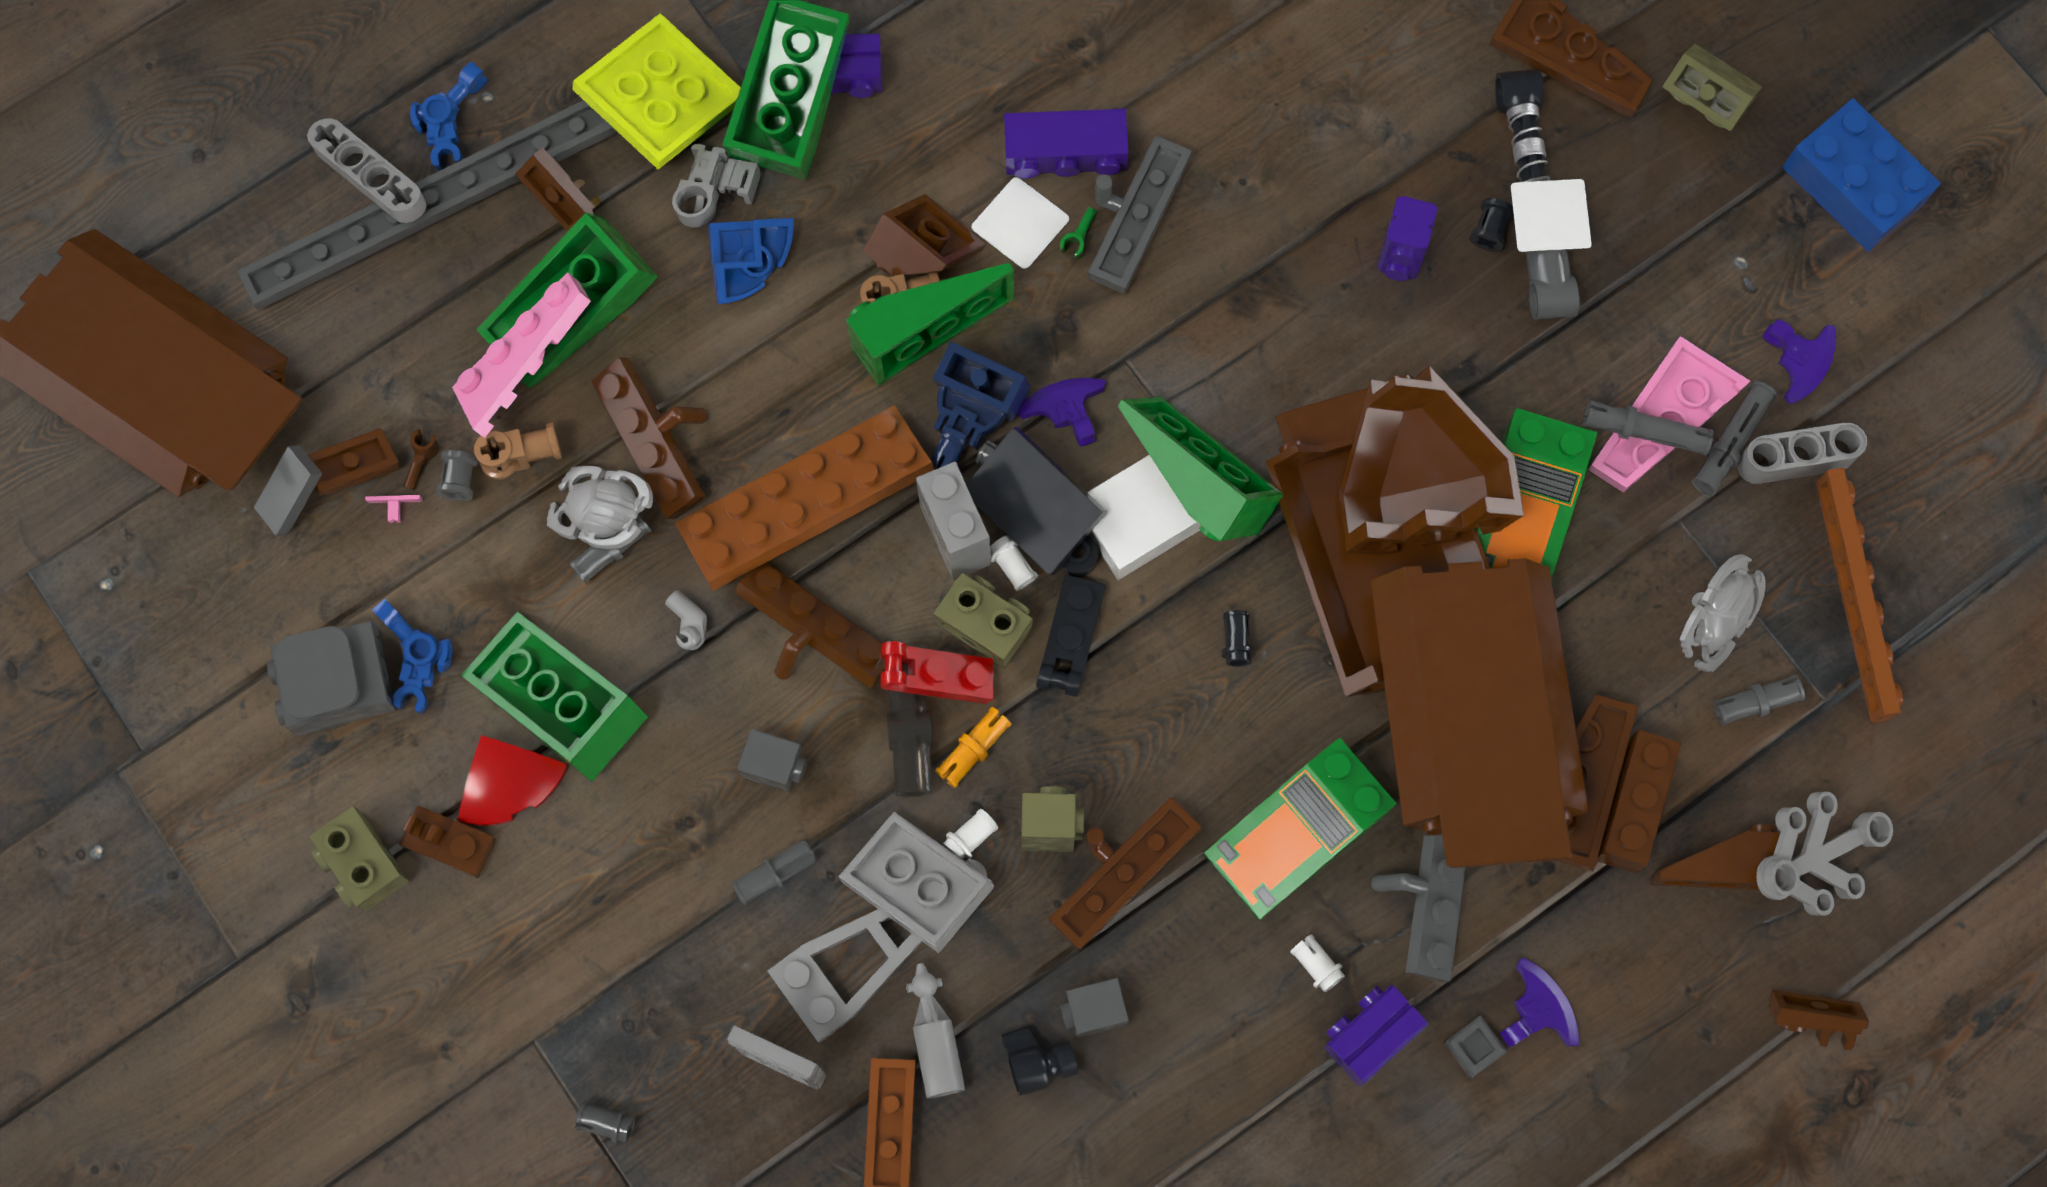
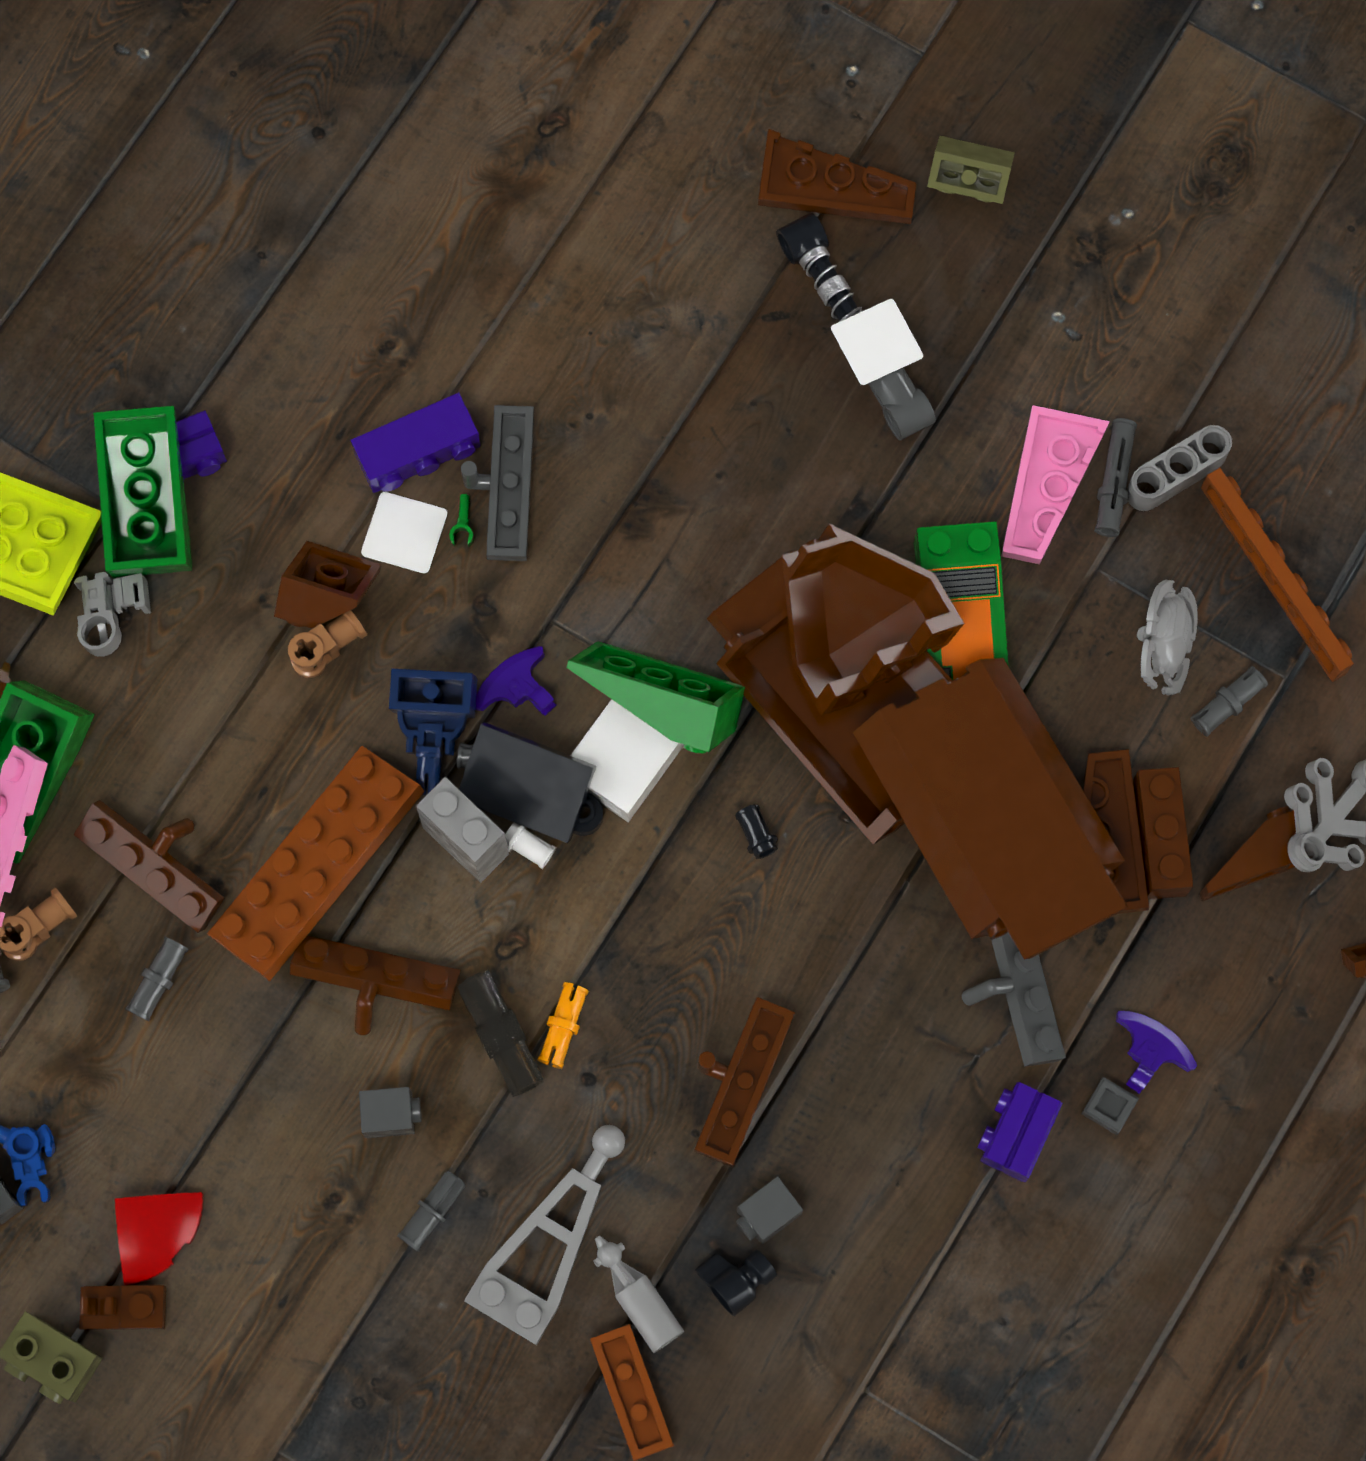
camera: 25 degrees left, 0 degrees up
(555, 696) = (165, 1135): green slope -> none
(600, 507) = (133, 946): light grey shield -> none
(693, 620) = (261, 1015): light grey arm -> none
(747, 255) = (167, 662): blue brick -> none
(776, 1058) = (509, 1373): light grey tile -> none
(916, 882) = (564, 1166): light grey tile -> none
(917, 321) = (347, 666): green slope -> none
(936, 673) = (504, 972): red plate -> none
(970, 835) = (593, 1105): white pin -> none
(984, 619) = (524, 906): olive brick -> none
(1051, 820) = (661, 1062): olive brick -> none
(1071, 634) = (607, 887): black plate -> none
(1300, 828) = (881, 978): slope -> none
(1318, 963) = (945, 1090): white pin -> none
(1406, 238) = (759, 413): dark purple brick -> none
(1492, 224) = (828, 369): black bush -> none
(1640, 425) = (1023, 501): dark grey pin -> none
(1802, 358) = (1146, 382): dark purple piece -> none
(1860, 175) = (1130, 198): blue brick -> none

